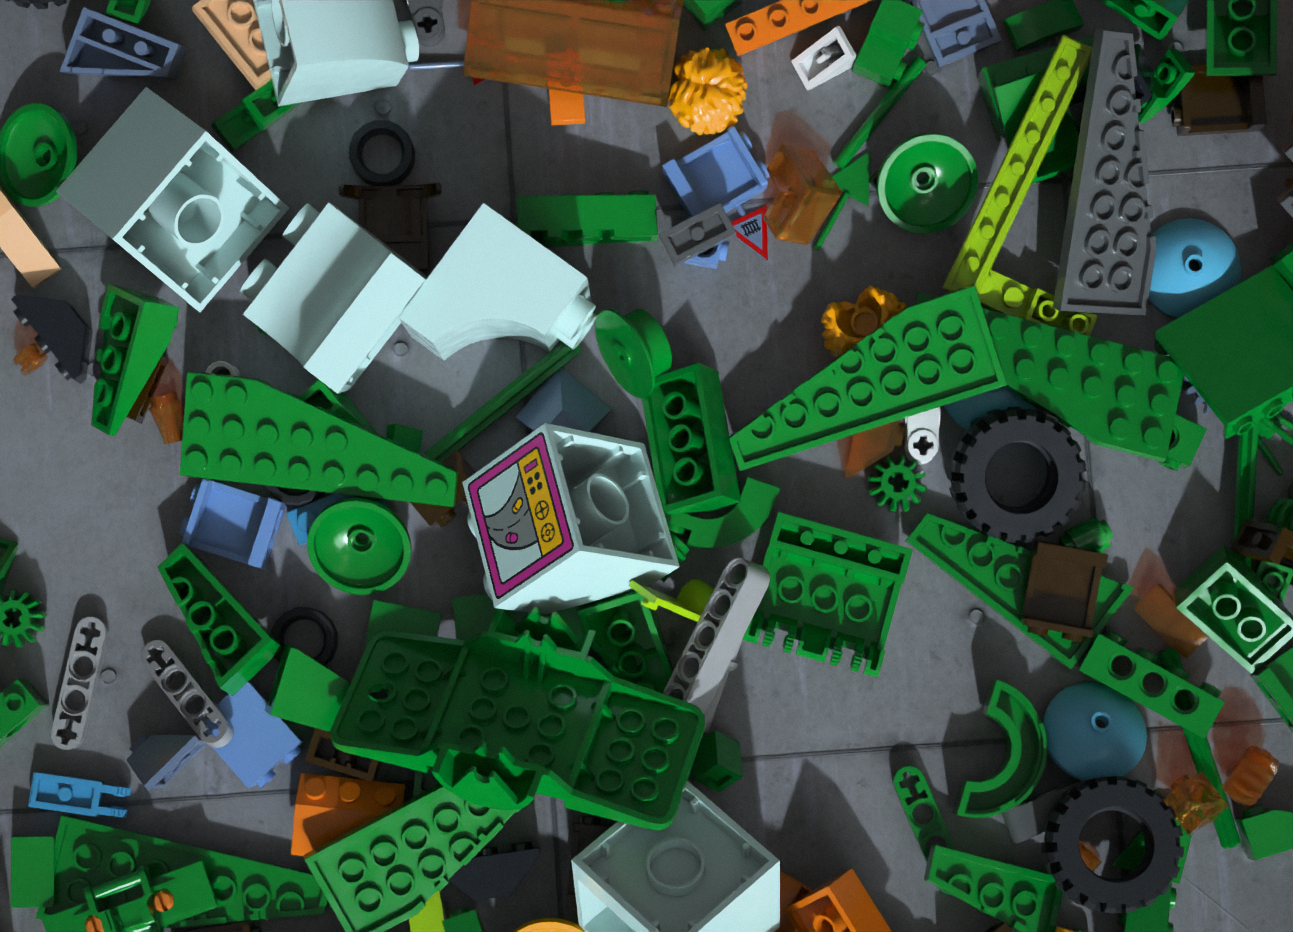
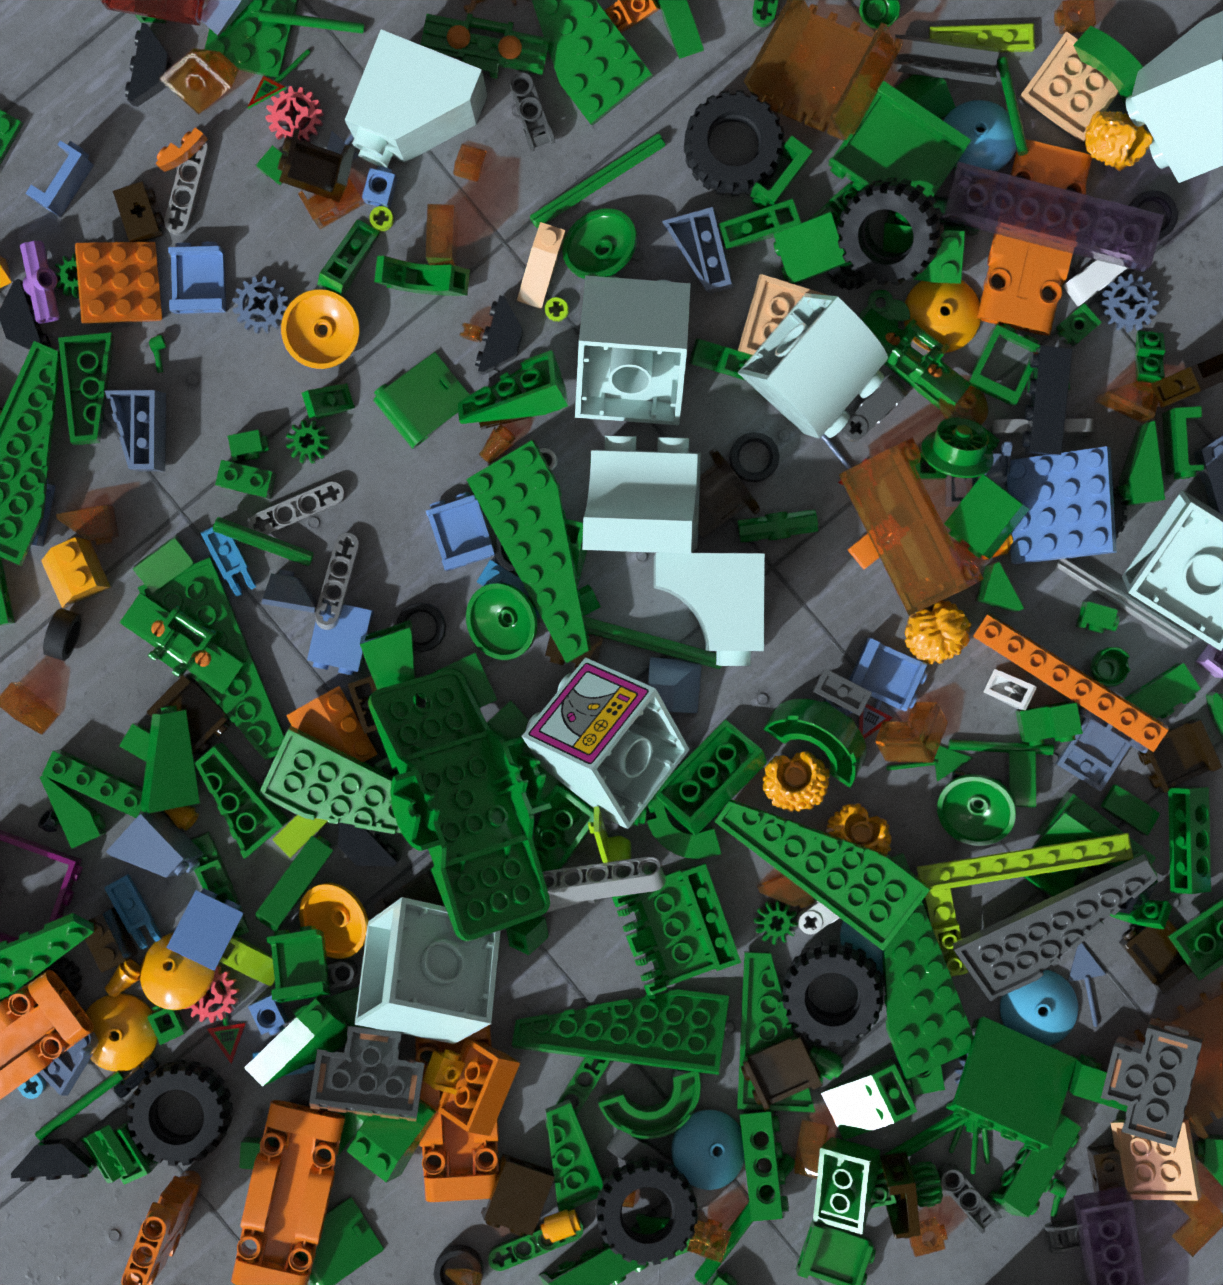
camera: 50 degrees right, 5 degrees up
(61, 466) = (419, 401): none -> green door
(82, 248) = (550, 304): none -> lime bush
(86, 744) = (263, 541): none -> green axle
(224, 627) = (392, 578): green wedge -> none
(473, 180) = (778, 526): none -> green piece
(589, 218) = (804, 616): green wedge -> none
(633, 349) = (742, 702): green piece -> none
(724, 278) = (824, 727): none -> green brick
(760, 352) = (796, 782): none -> light orange hair
(928, 111) = (1023, 777): none -> green slope
(928, 689) = (658, 1030): none -> green wing
(1162, 519) = (869, 1100): none -> slope
(1180, 190) = (1085, 968): none -> sand blue piece
(1251, 775) = (750, 1263): clear orange gear -> none

